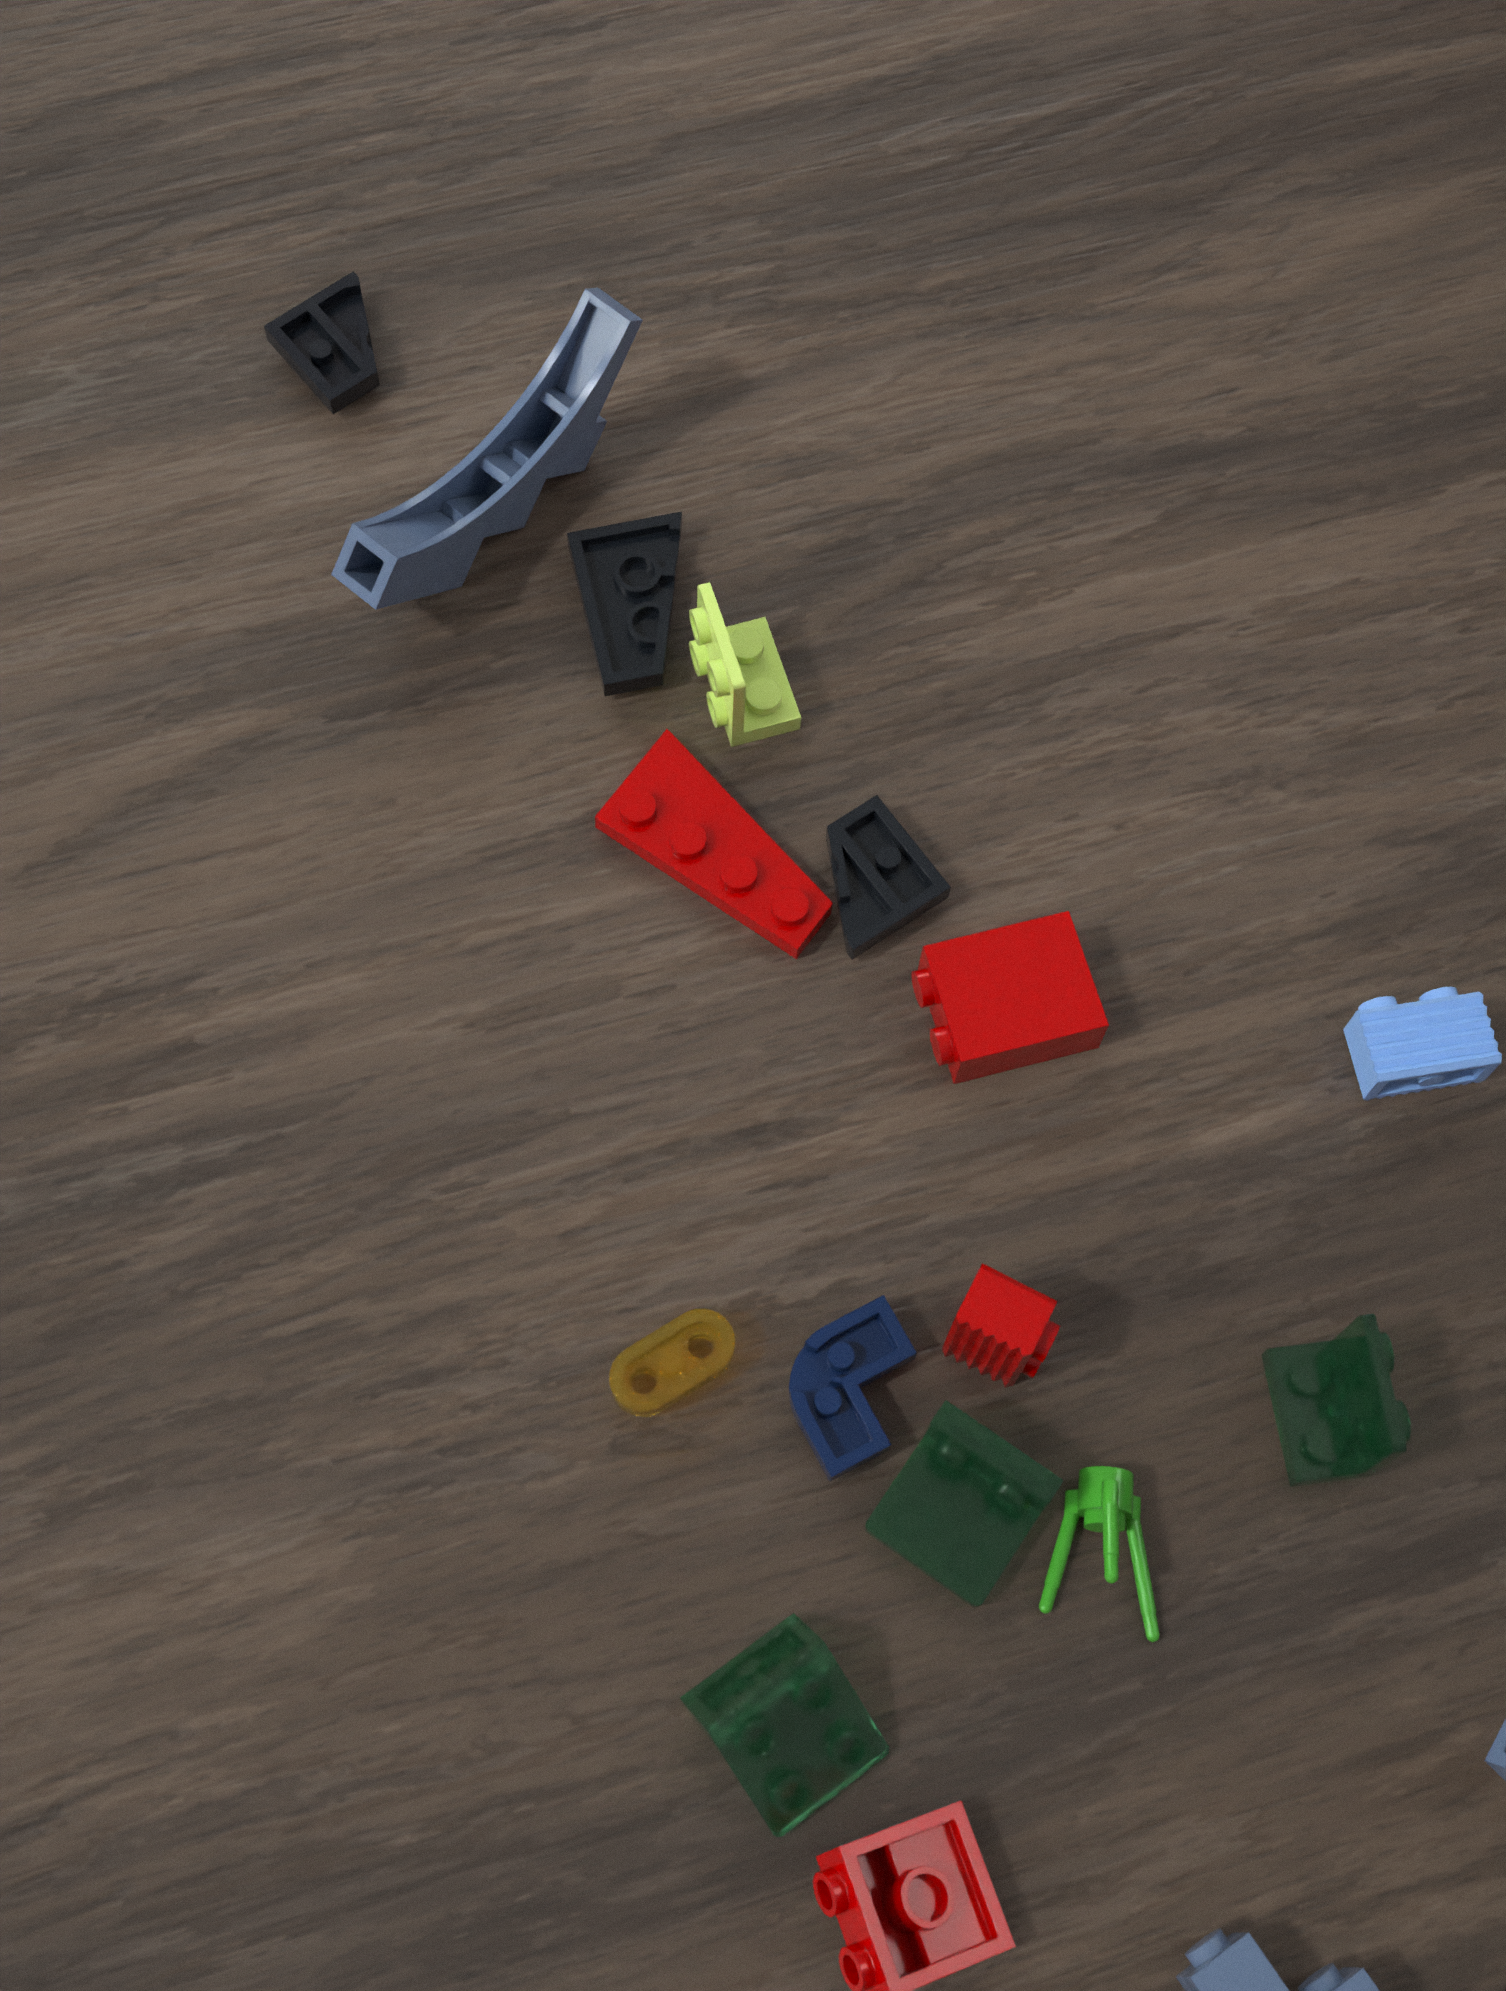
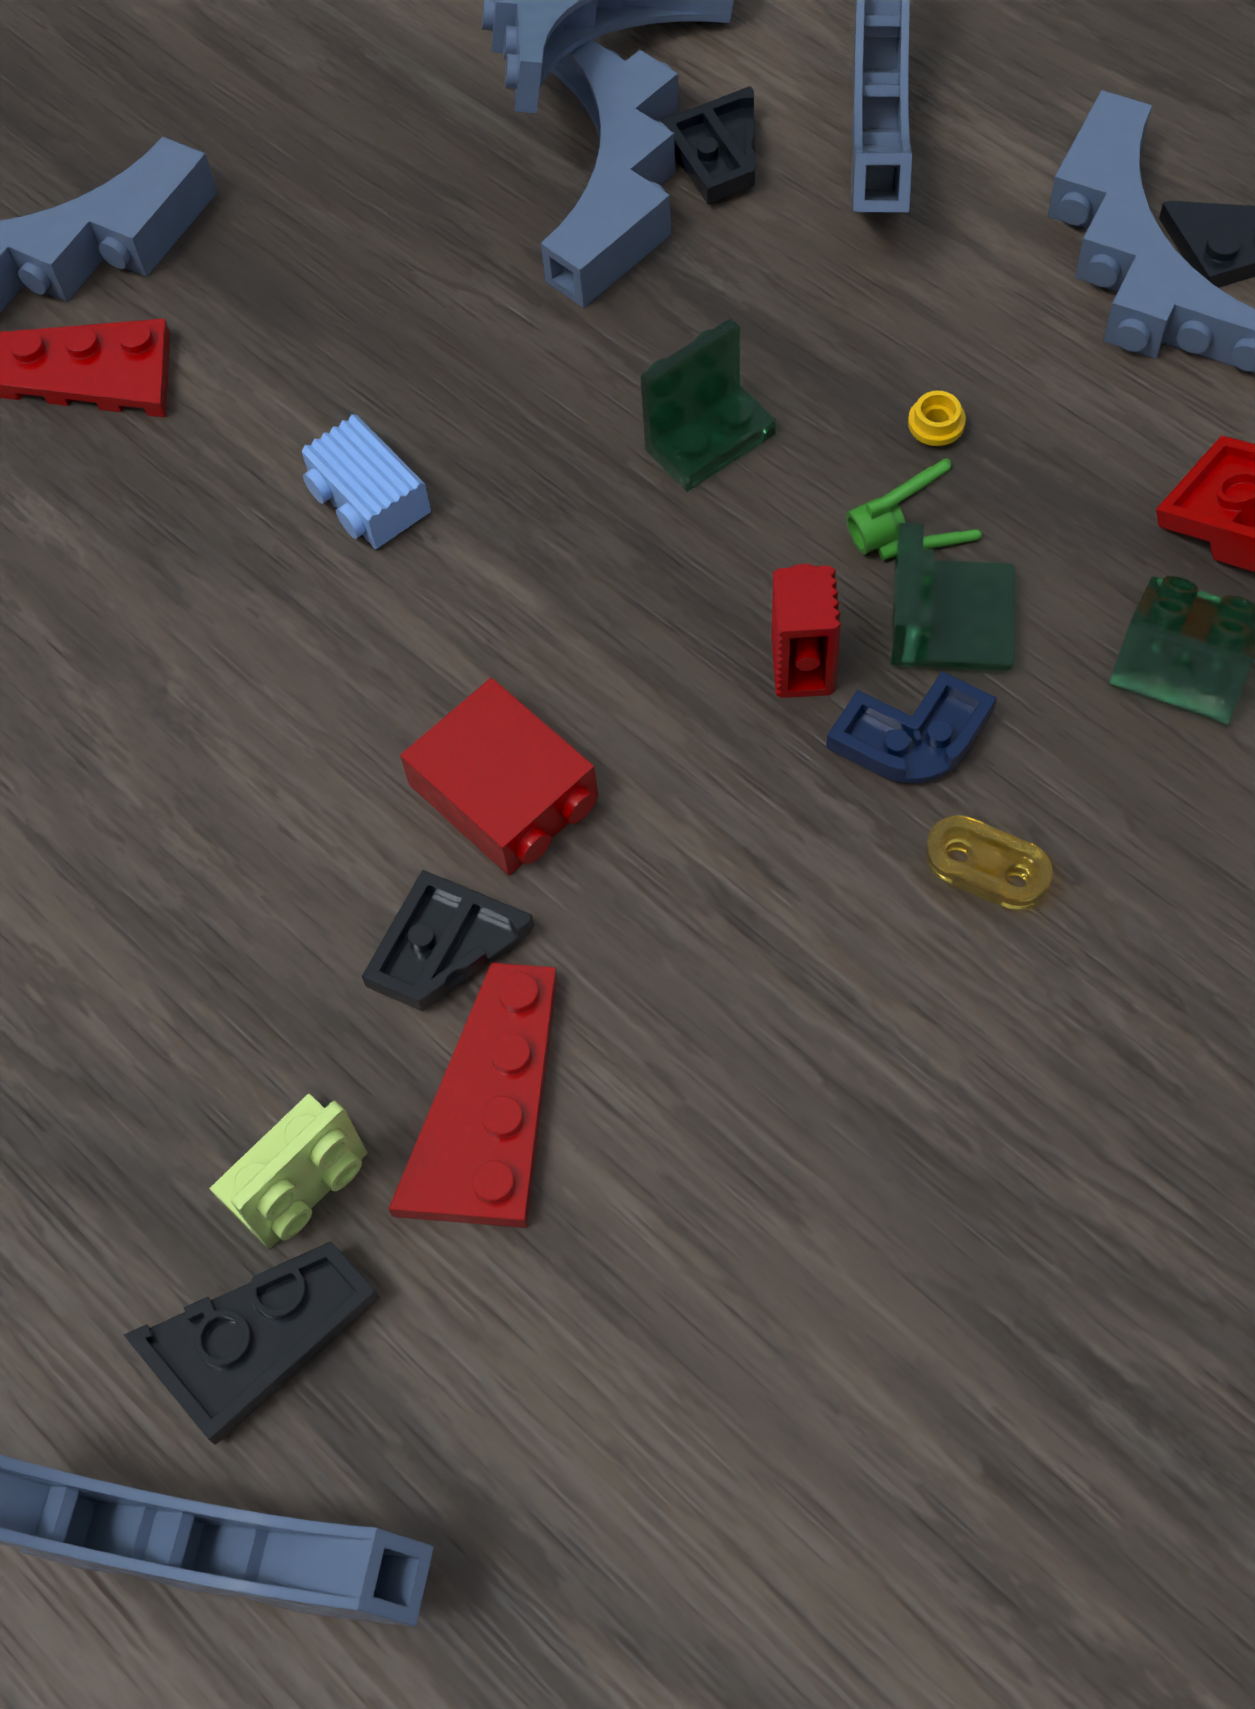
camera: 110 degrees left, 5 degrees down
(1227, 1643) = (943, 409): none -> yellow plate

